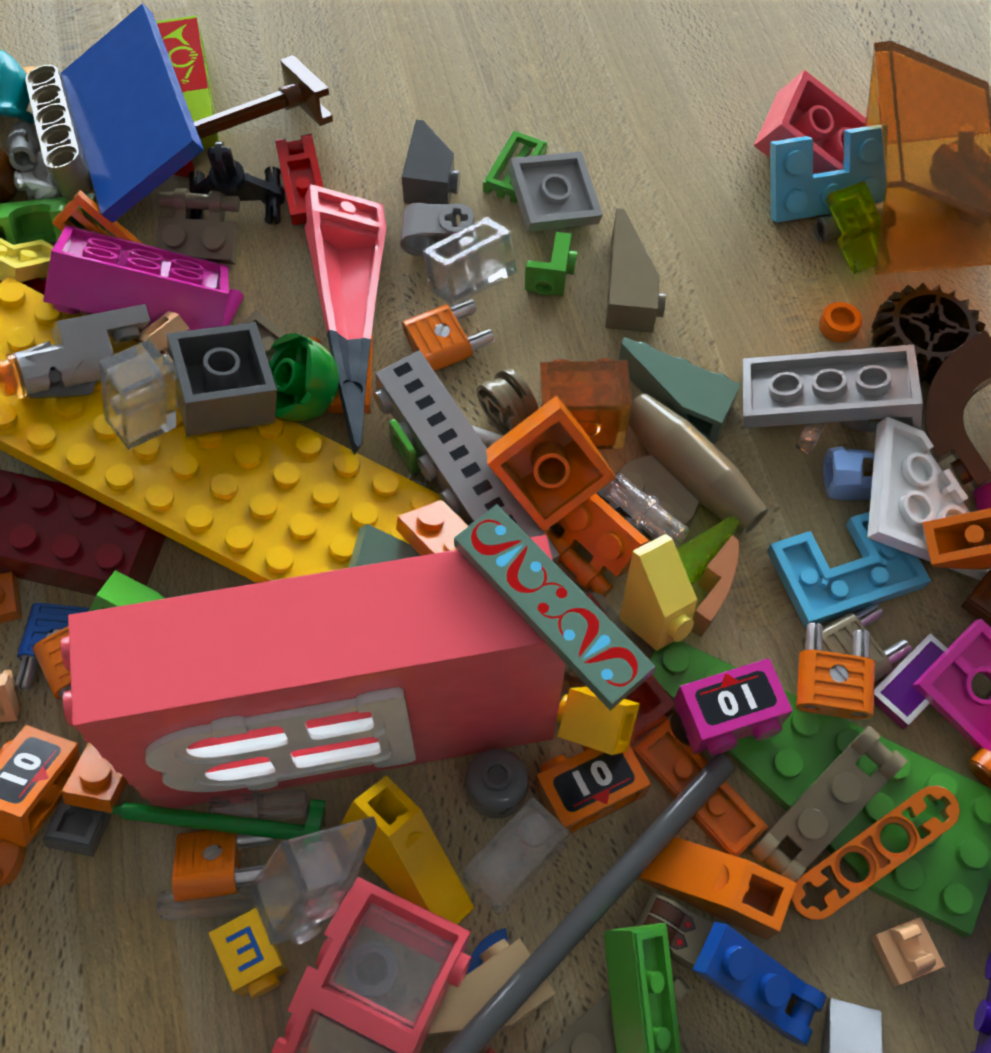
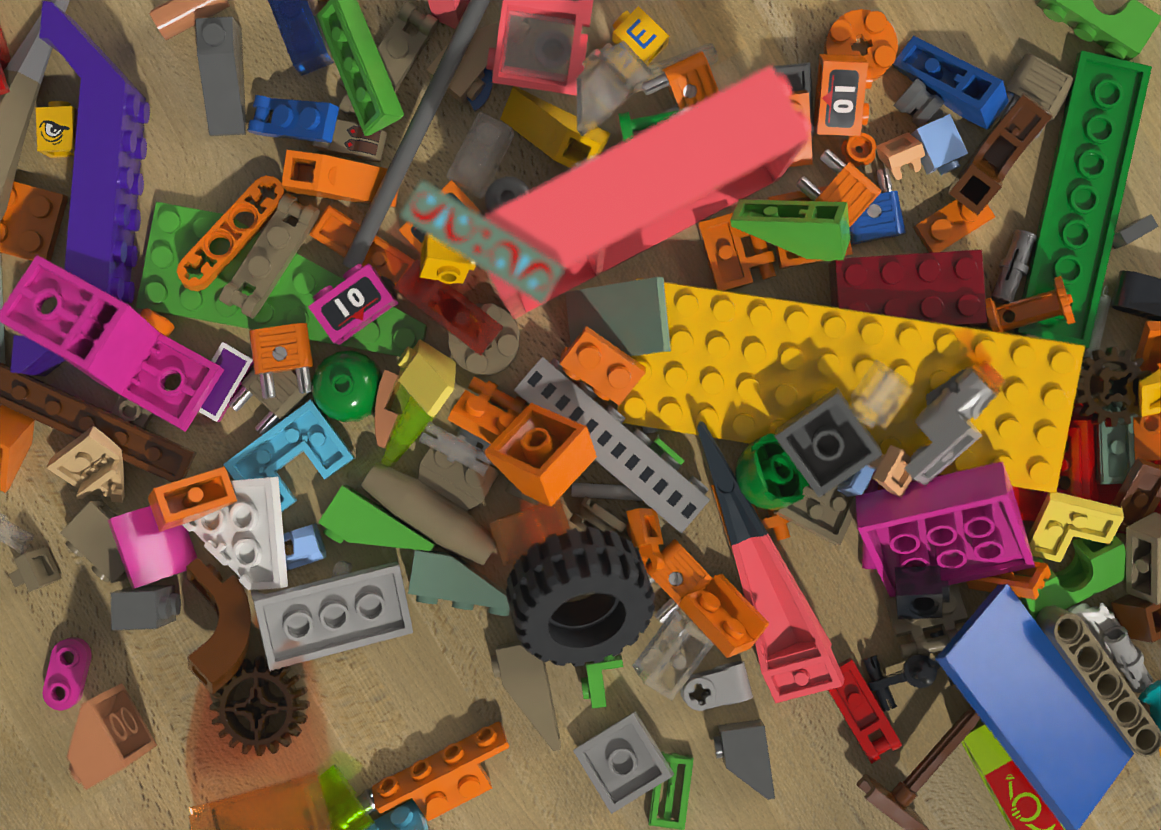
camera: 170 degrees right, 25 degrees up
(35, 709) = (868, 147): none -> orange plate
(193, 241) = (920, 592): none -> black brick
(404, 275) = (724, 616): none -> orange bracket
(460, 374) = (646, 534): none -> orange plate
(552, 314) = (572, 567): none -> black tyre
(742, 230) = (444, 777): none -> orange bracket
(757, 625) = (346, 386): none -> green cylinder
(775, 472) = (363, 521): none -> bright green slope
(840, 322) = (337, 703): orange tile -> none
(907, 952) = (197, 179): light nougat tile -> none

